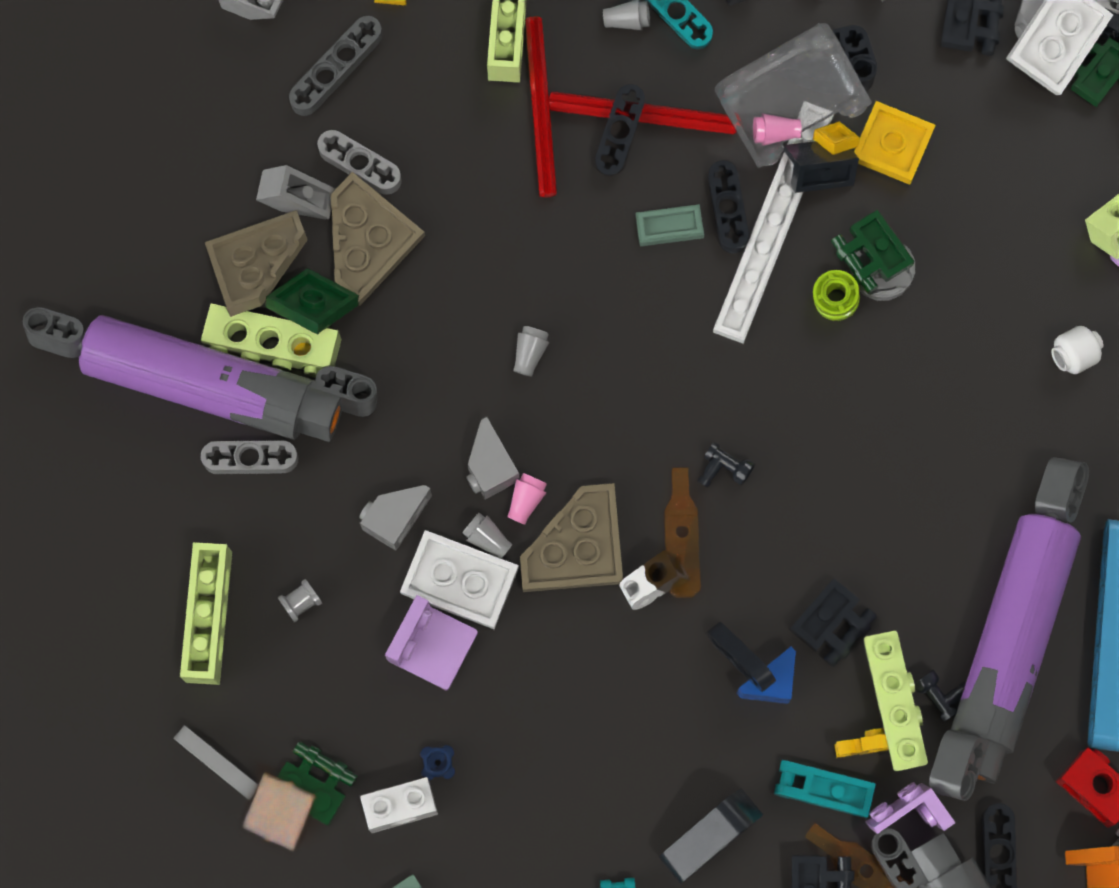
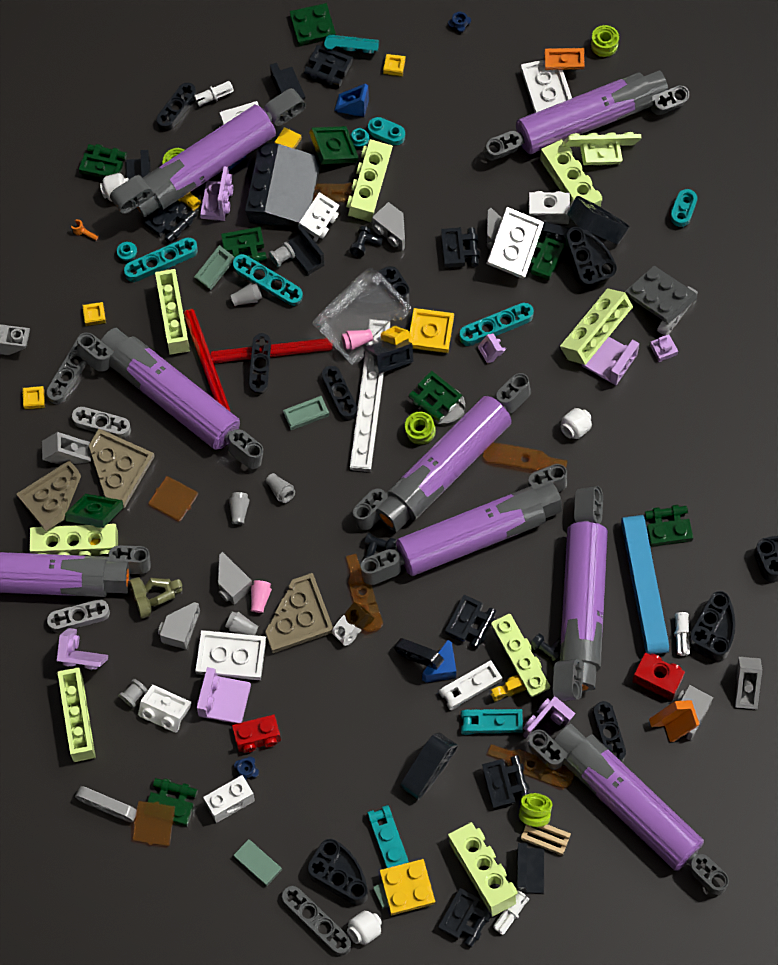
camera: 15 degrees left, 10 degrees down
(223, 522) = (66, 652): none -> lavender bracket
(269, 97) = (33, 397): none -> yellow tile
(339, 635) = (163, 708): none -> white bracket
(350, 444) = (140, 591): none -> olive piece
(436, 309) = (173, 498): none -> clear orange piece
(466, 712) = (256, 733): none -> red bracket
(474, 142) = (171, 392): none -> piece
(601, 337) = (282, 490): none -> light grey cone
(808, 722) = (471, 685): none -> white plate
(860, 357) = (444, 461): none -> piece
(876, 478) = (472, 528): none -> piece
(965, 373) = (512, 456): none -> clear orange piece
(977, 194) = (490, 348): none -> lavender tile
(997, 161) = (494, 321): none -> teal beam

